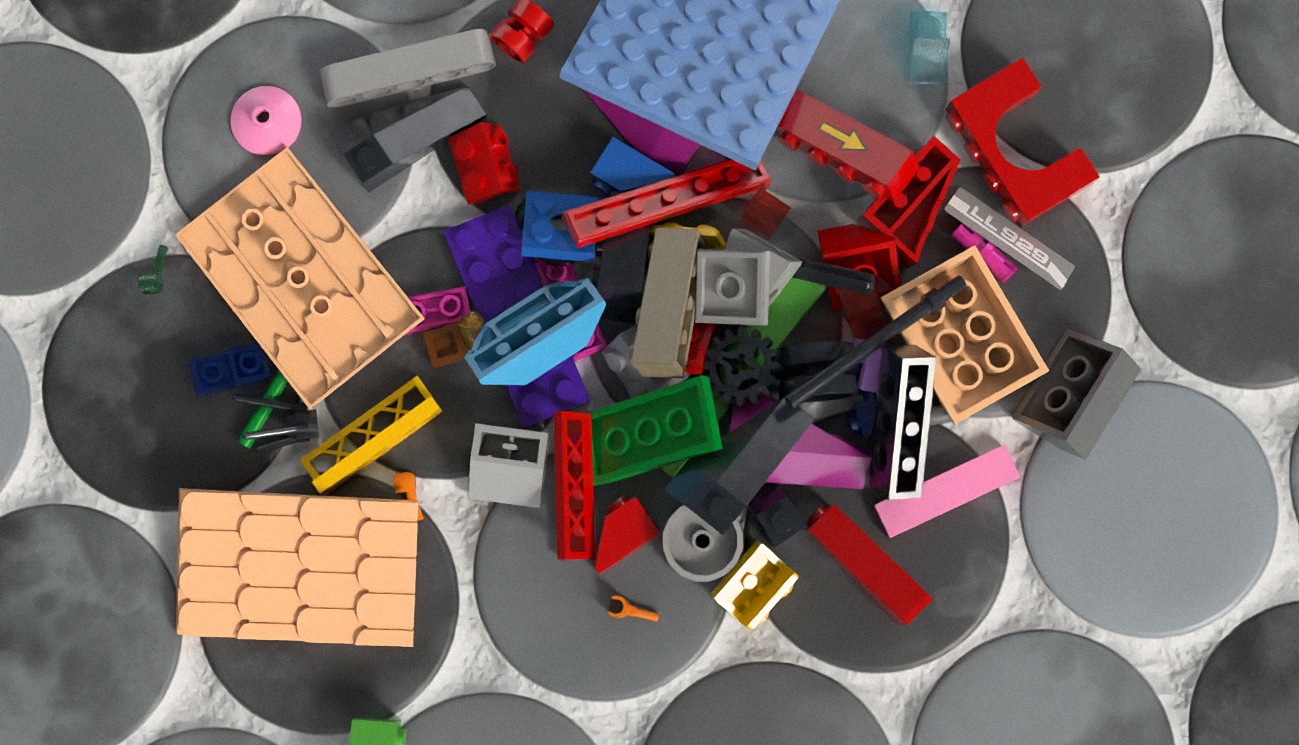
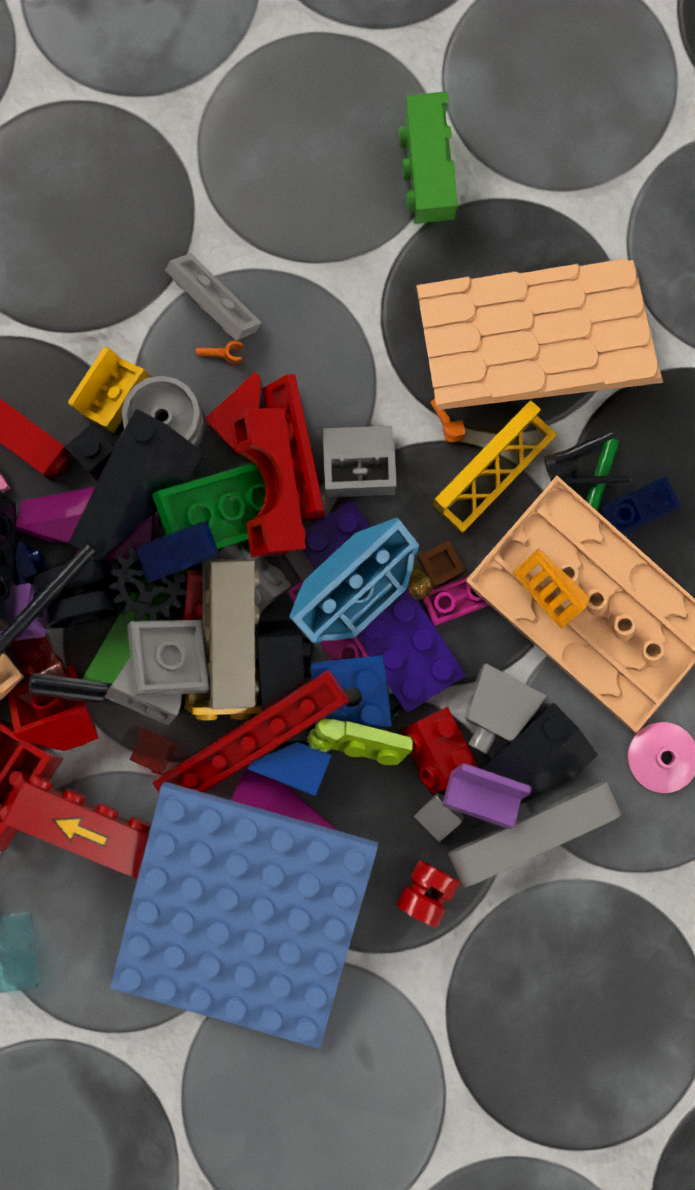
camera: 170 degrees right, 0 degrees up
(335, 270) = (551, 605): none -> light orange slope
(416, 192) = (499, 707): none -> light grey torso
(449, 105) = (484, 795): none -> medium lavender panel
(496, 101) = (438, 819): none -> light grey slope
(559, 180) = (359, 741): none -> lime hinge
(602, 406) = (264, 440): none -> red arch
(630, 670) = (213, 296): none -> light grey plate
(704, 381) = (177, 551): none -> clear blue slope

